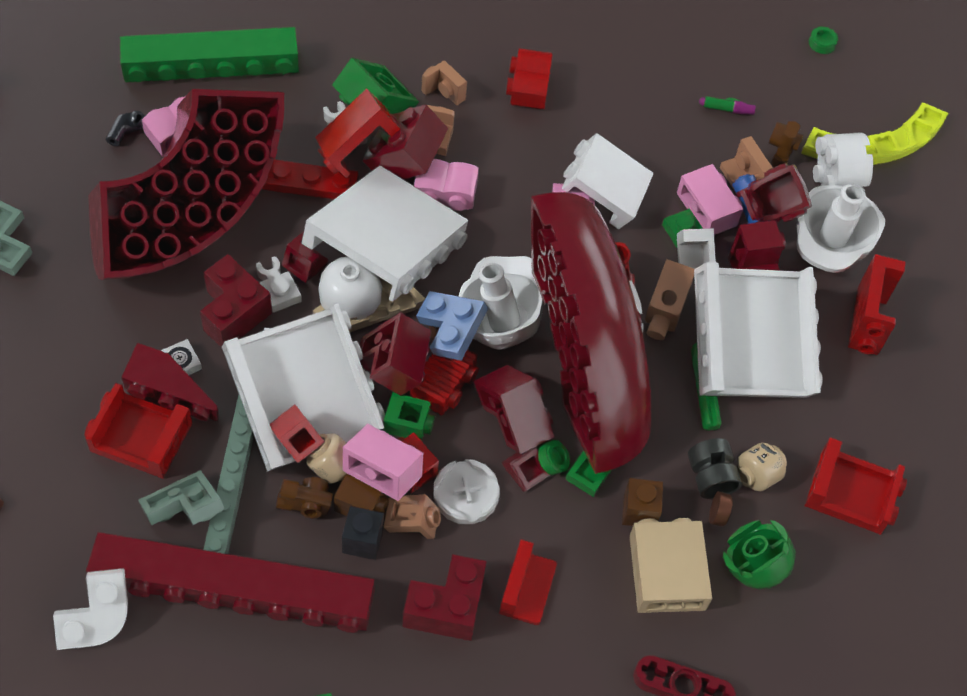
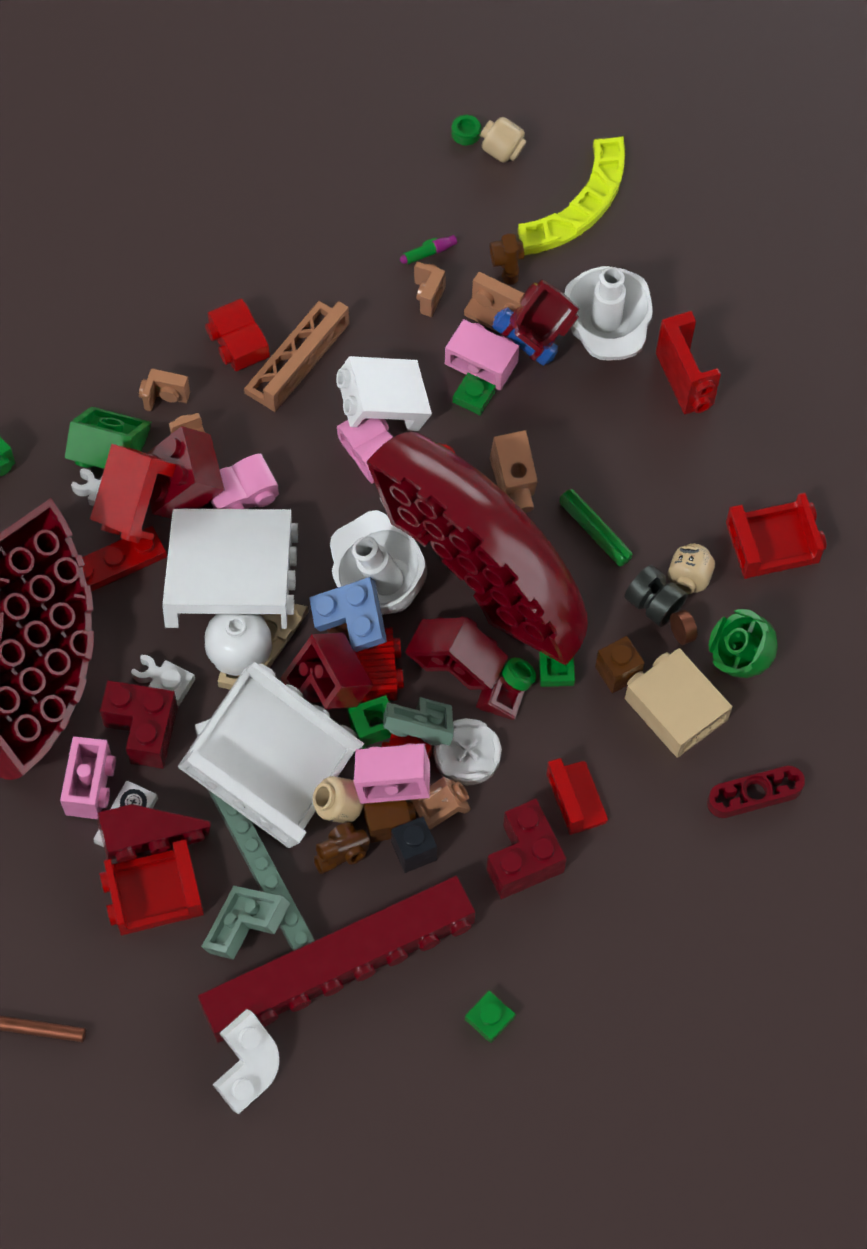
camera: 30 degrees left, 5 degrees up
(156, 314) = (86, 777): none -> bright pink brick
(296, 433) = (298, 798): red brick -> none
(302, 260) = (171, 642): dark red panel -> none
(446, 447) = (430, 721): none -> sand green plate
(567, 120) = (300, 360): none -> nougat fence
(696, 247) = (502, 407): white panel -> none
(707, 131) = (431, 286): none -> nougat bracket
(757, 246) = (563, 392): dark red brick -> none
(757, 332) = (610, 452): white panel -> none
(843, 160) = (571, 245): white brick -> none
(846, 60) = (503, 139): none -> tan head

